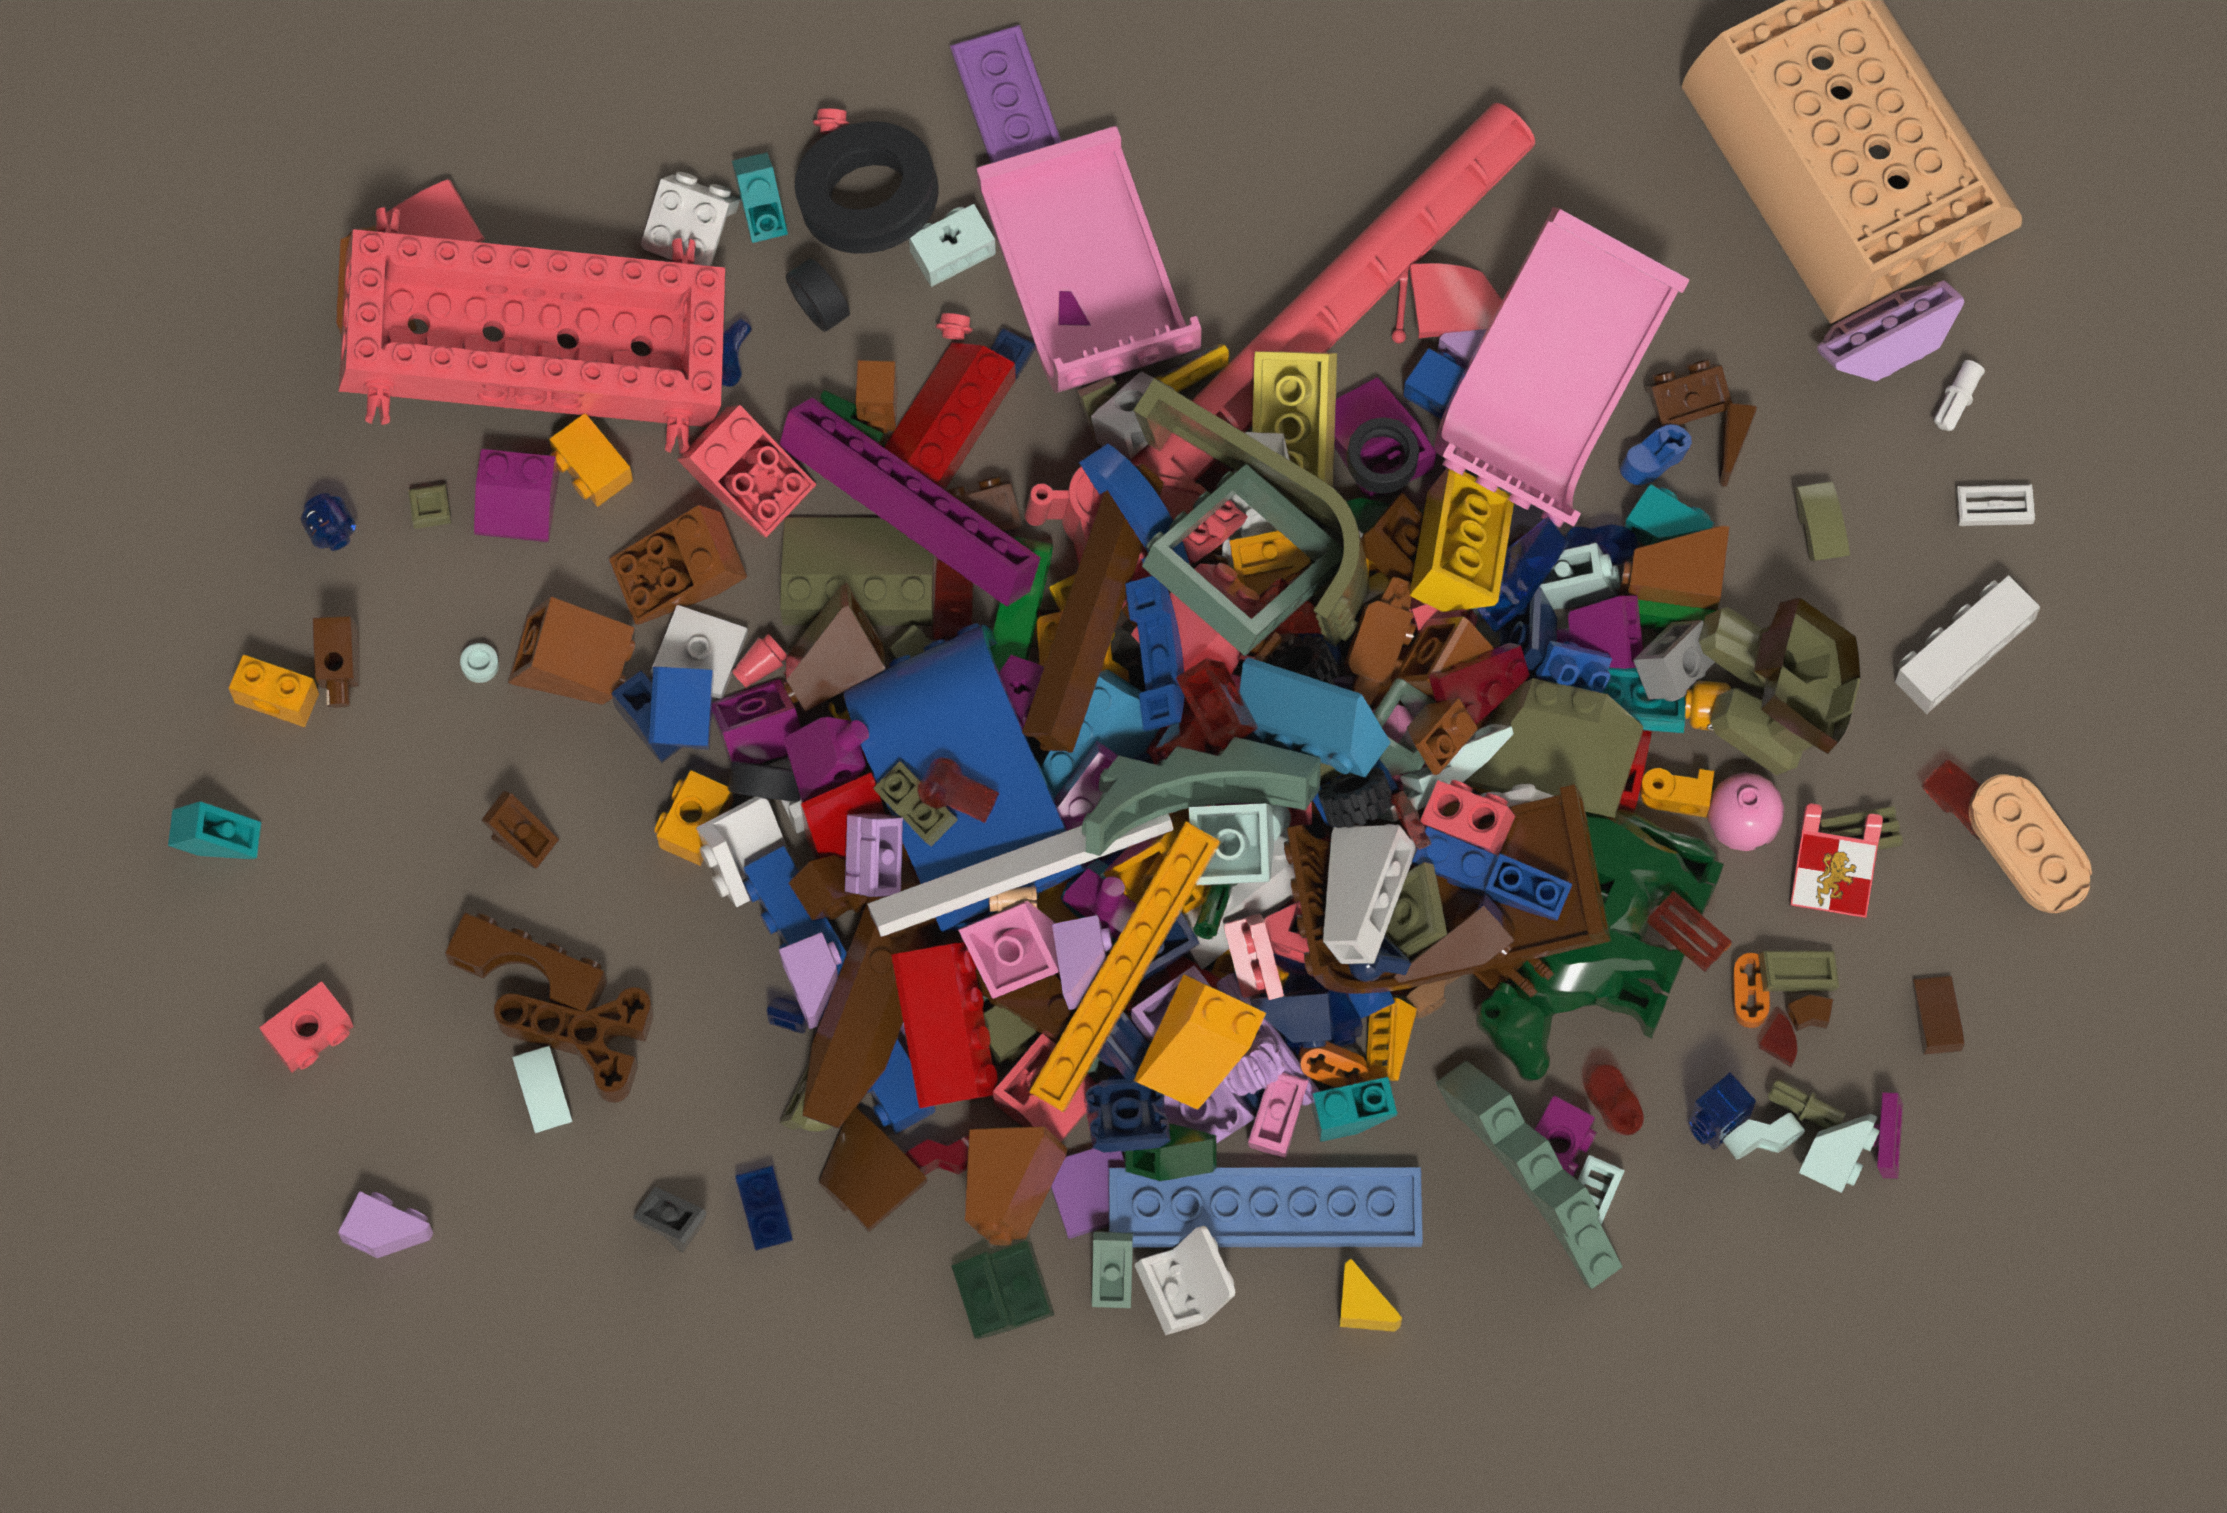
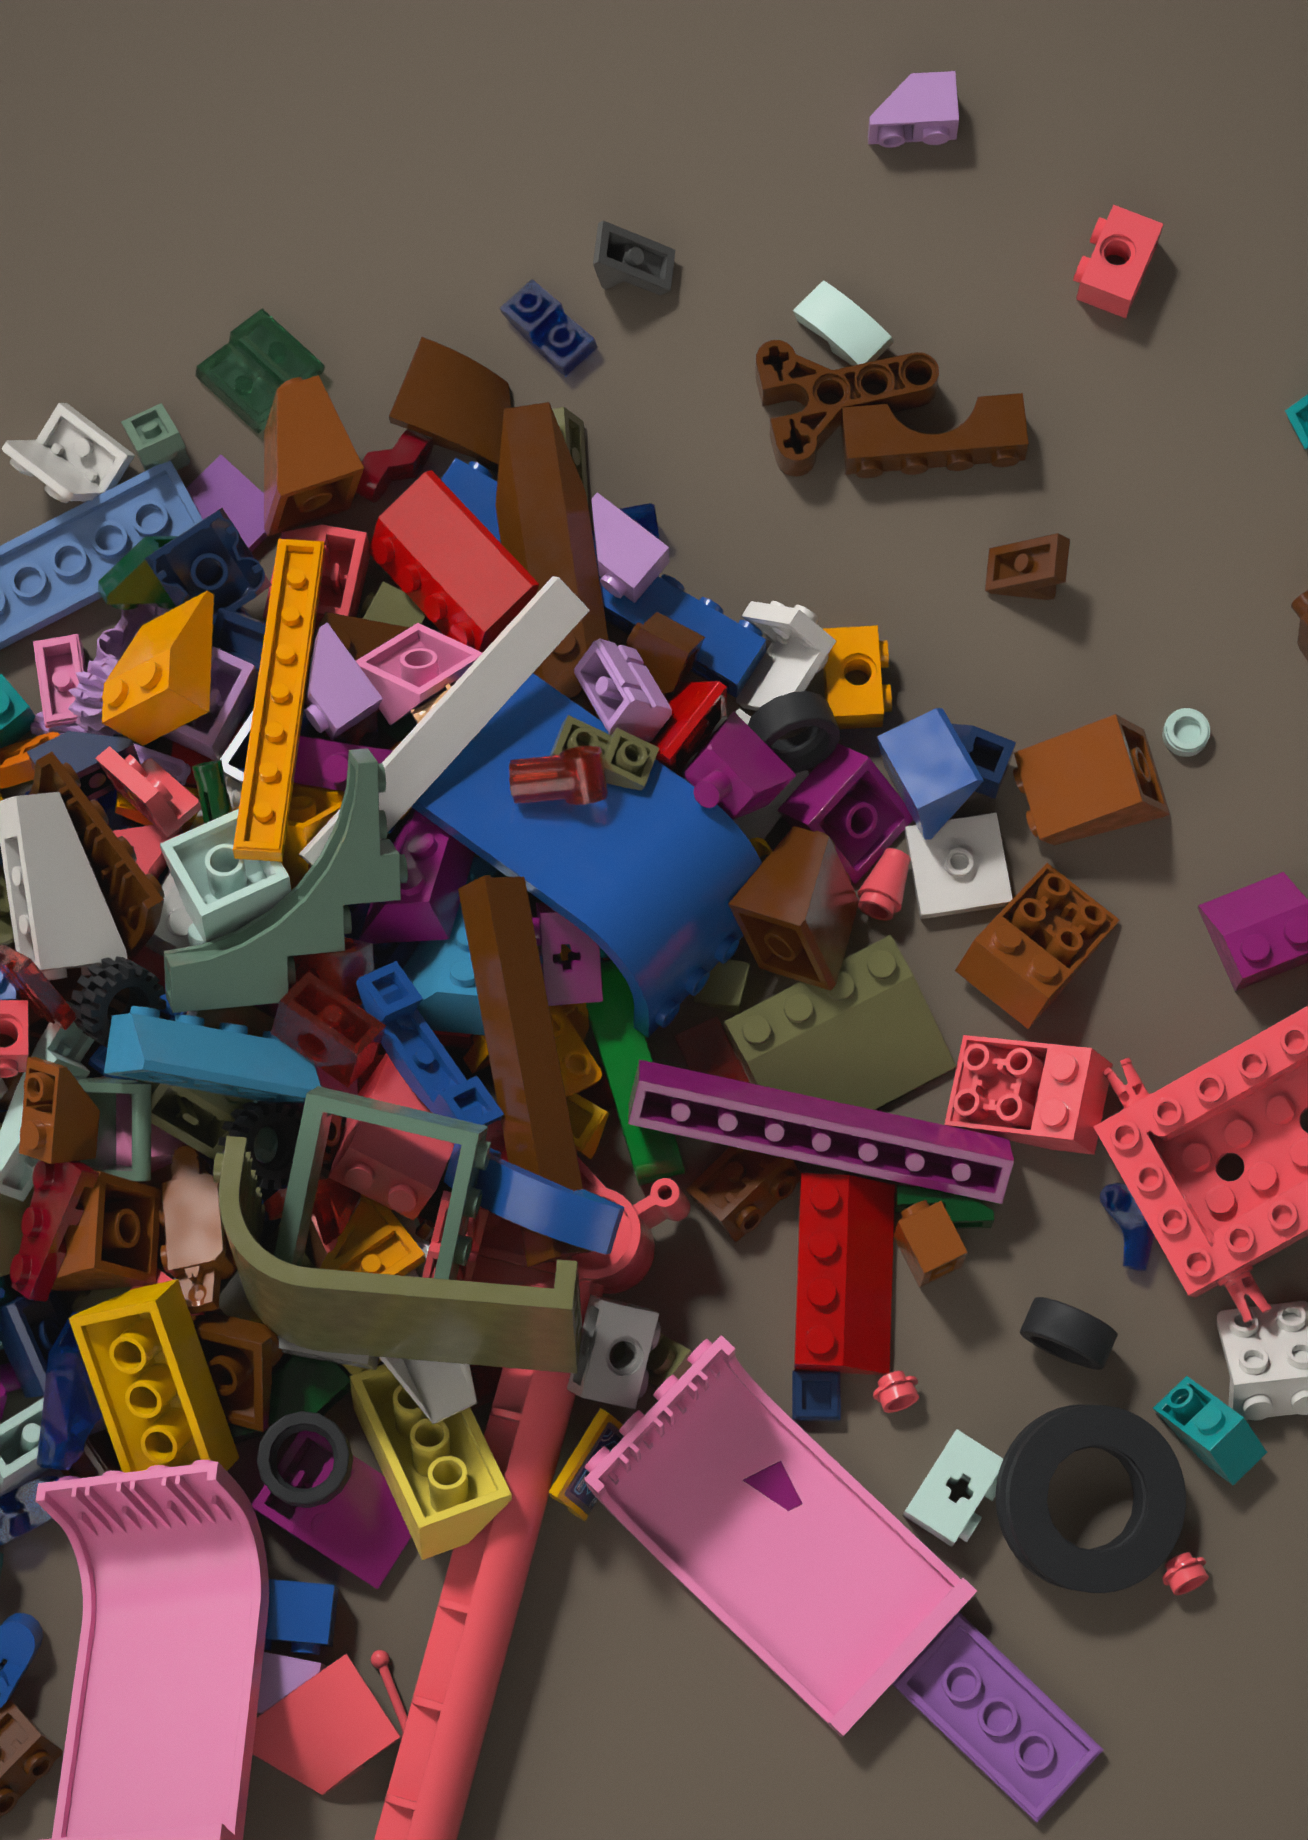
camera: 155 degrees right, 5 degrees up
(590, 460) = (1205, 1009): light orange brick -> none

